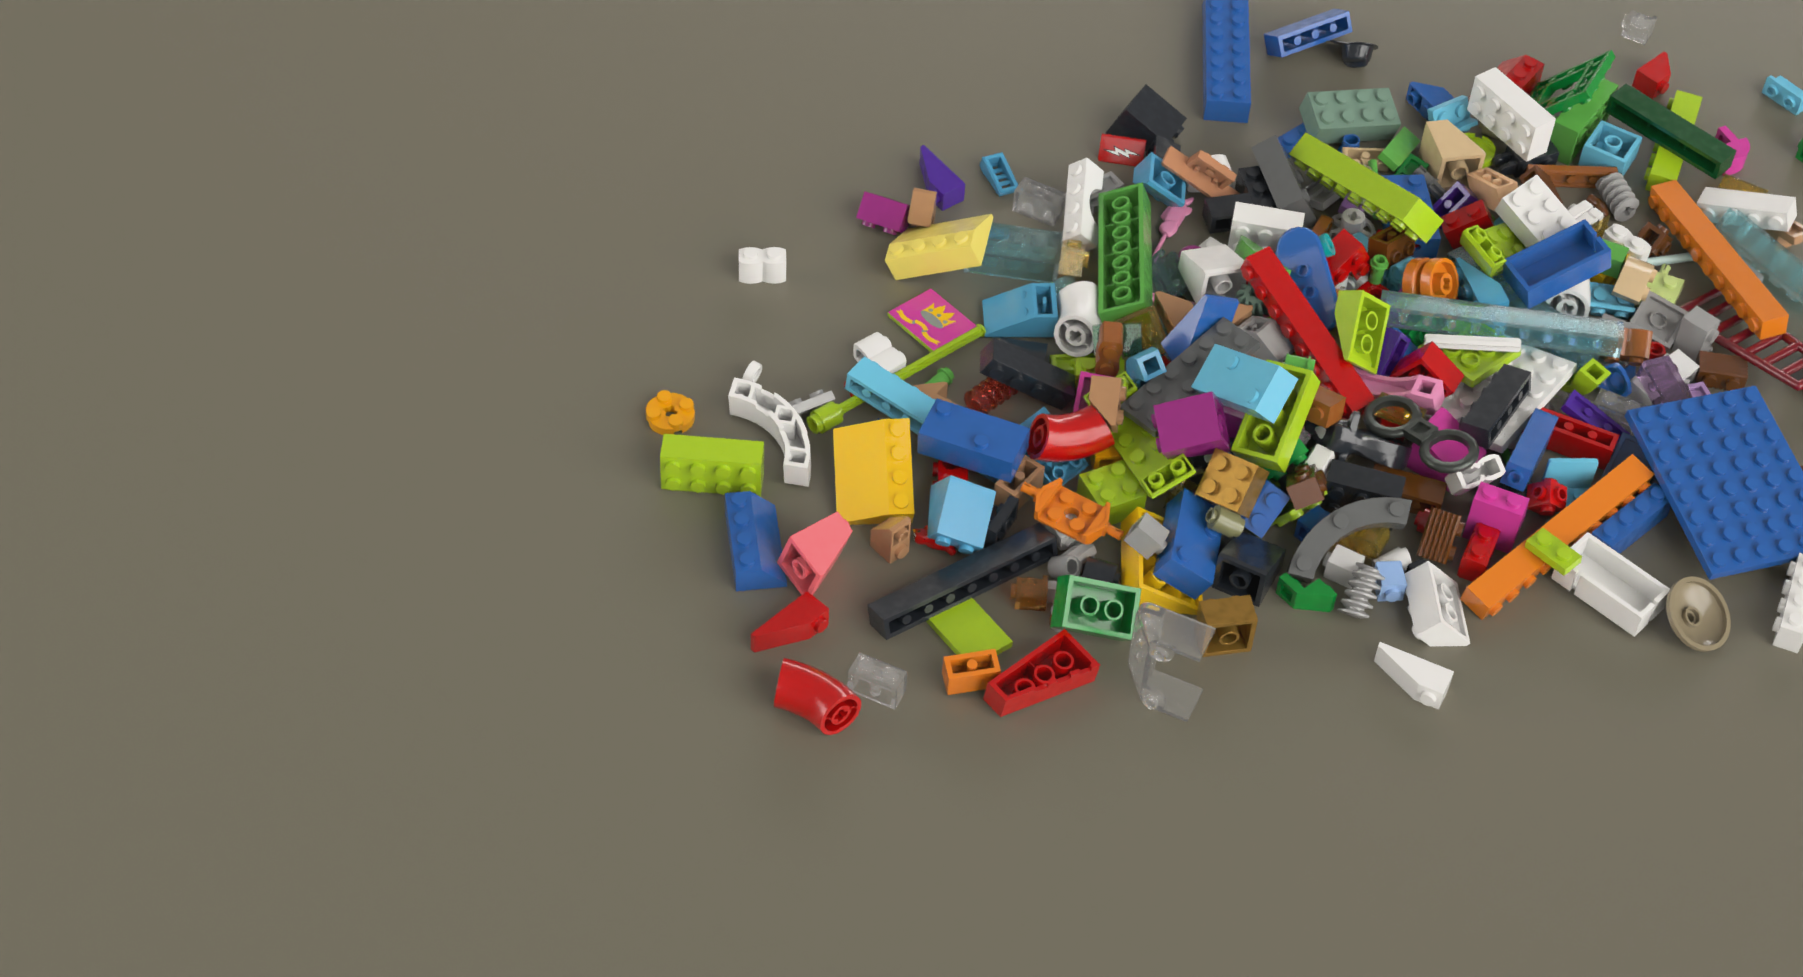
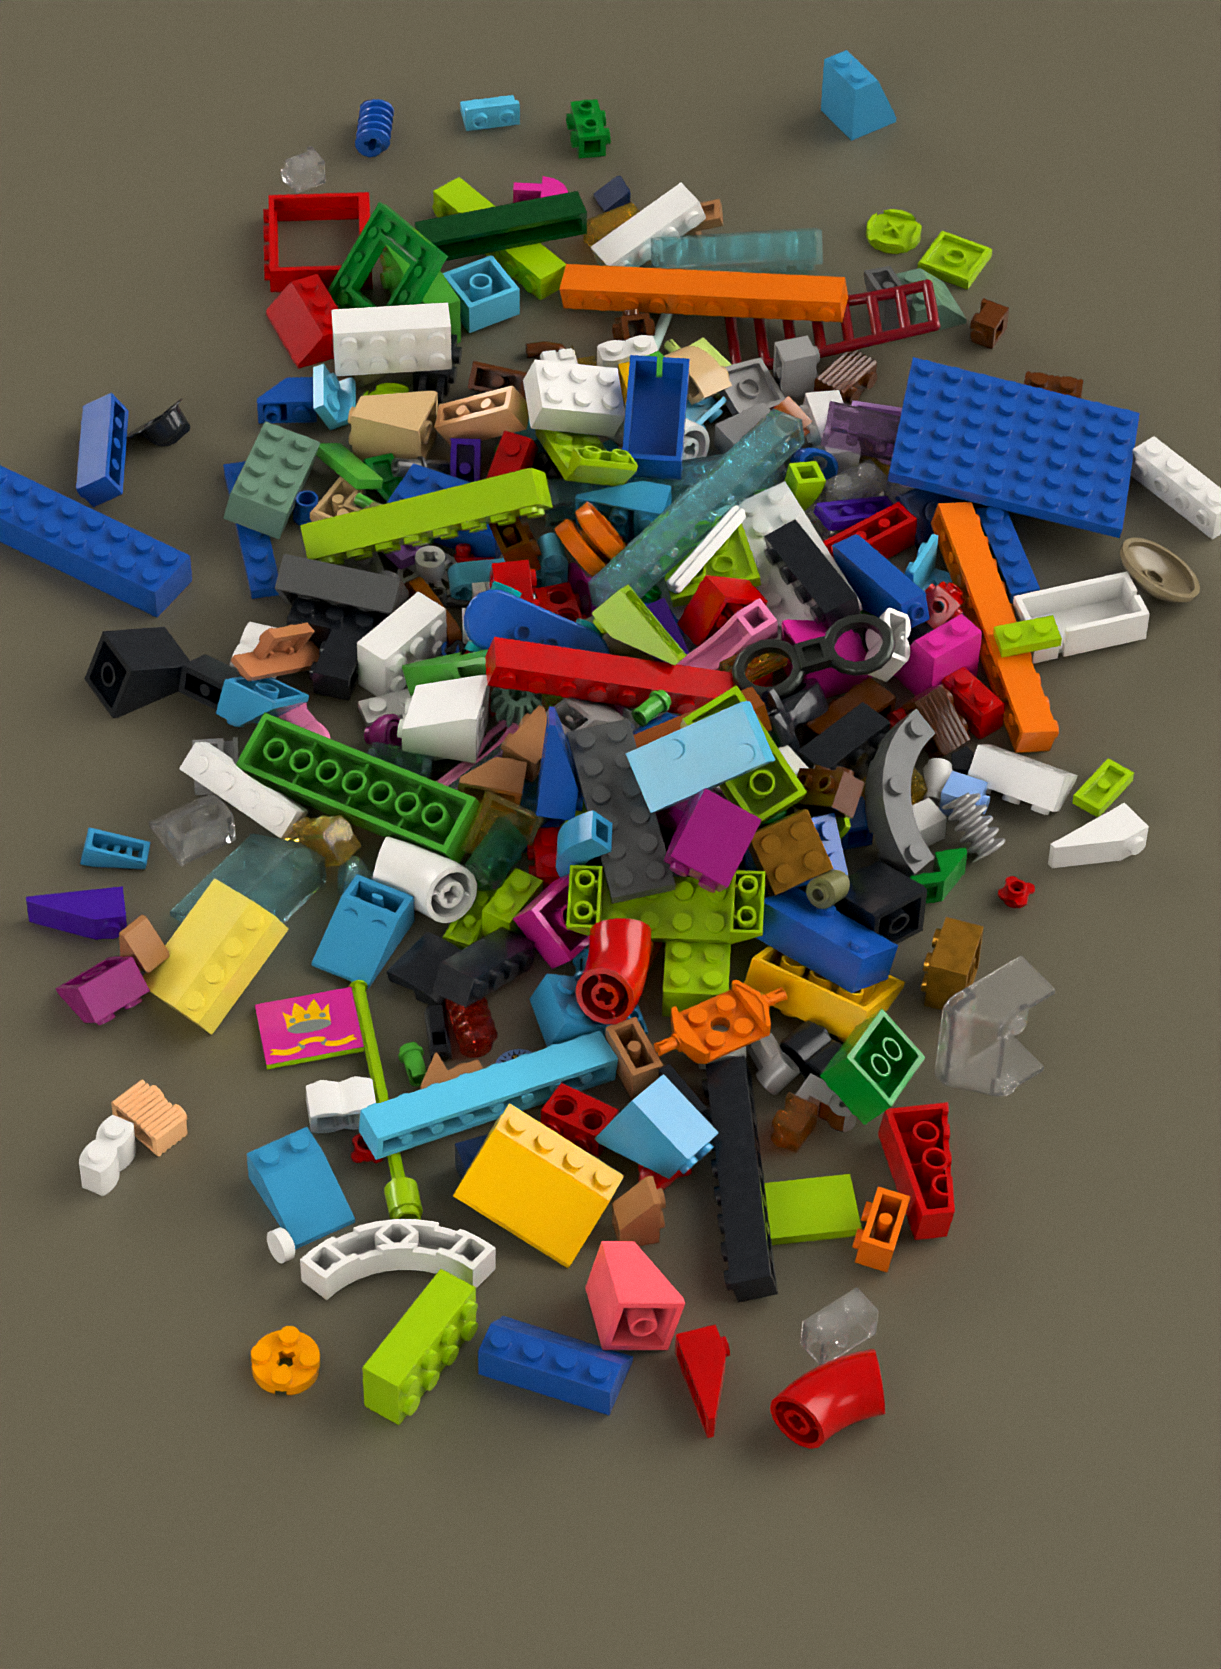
camera: 60 degrees left, 0 degrees up
(802, 363) = (299, 1187): none -> dark azure slope
(806, 273) = (154, 1118): none -> light nougat brick
(816, 400) = (372, 1199): plate -> none
(963, 385) = (438, 1031): none -> black bar
(973, 440) = (568, 1060): blue brick -> none
(1106, 398) = (607, 899): medium nougat slope -> none
(1109, 349) = (521, 866): dark orange brick -> none
(1121, 150) = (162, 715): red slope -> none
(1147, 536) = (810, 967): light grey brick -> none
(1327, 649) = (1016, 892): none -> red plate
(1378, 266) = (542, 568): bright green pin -> none
(1467, 660) = (1103, 788): none -> lime plate
(1575, 175) = (490, 344): dark orange tile -> none
(1618, 196) = (546, 324): light grey piece -> none
(1626, 59) = (309, 208): none -> red window
(1653, 76) = (391, 192): red slope -> none
(1709, 42) = (374, 127): none -> blue piece
(1775, 184) = (613, 194): none -> dark blue slope

